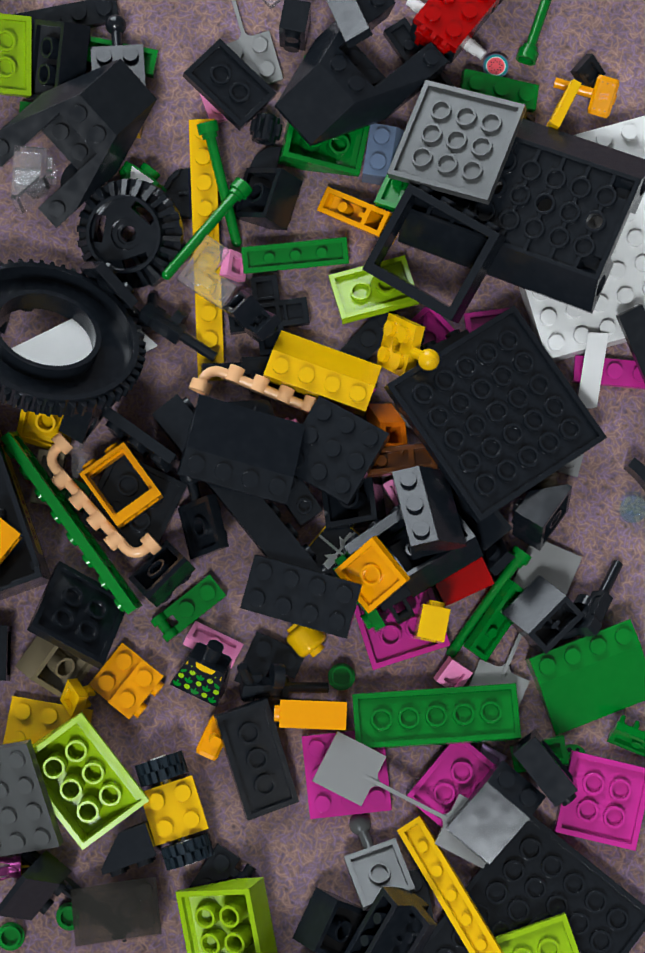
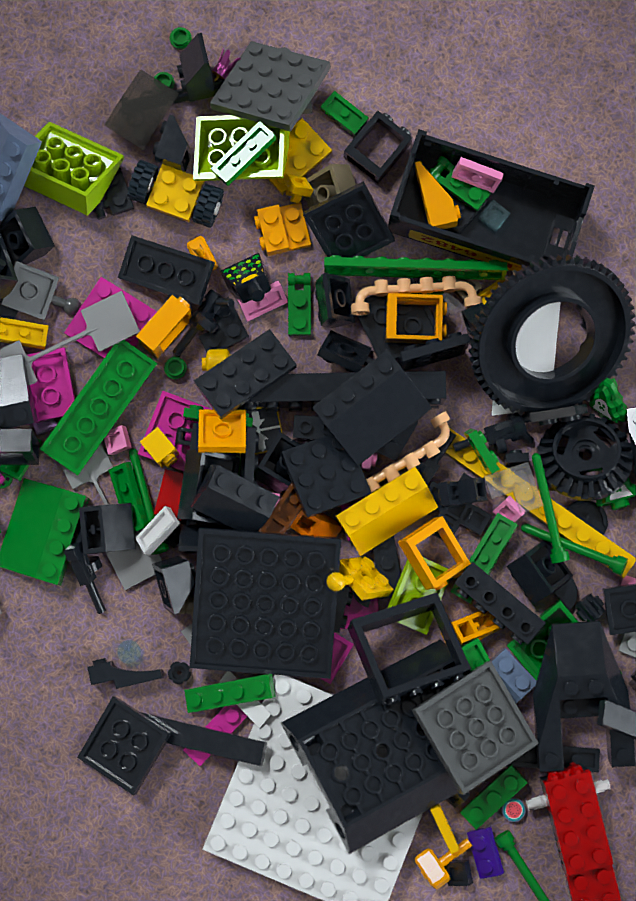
camera: 130 degrees right, 0 degrees up
(61, 248) = (609, 401): none -> green rock
(87, 768) = (243, 153): none -> plate
(179, 295) = (515, 458): none -> black plate
(202, 317) = (487, 458): none -> green plate
(321, 323) = (408, 546): none -> light orange window
(327, 206) = (499, 602): none -> black brick
(507, 566) = (157, 530): none -> white tile
(552, 62) = (485, 852): none -> dark purple plate
(598, 386) = (229, 693): none -> green plate
(621, 446) = (174, 668): none -> black plate

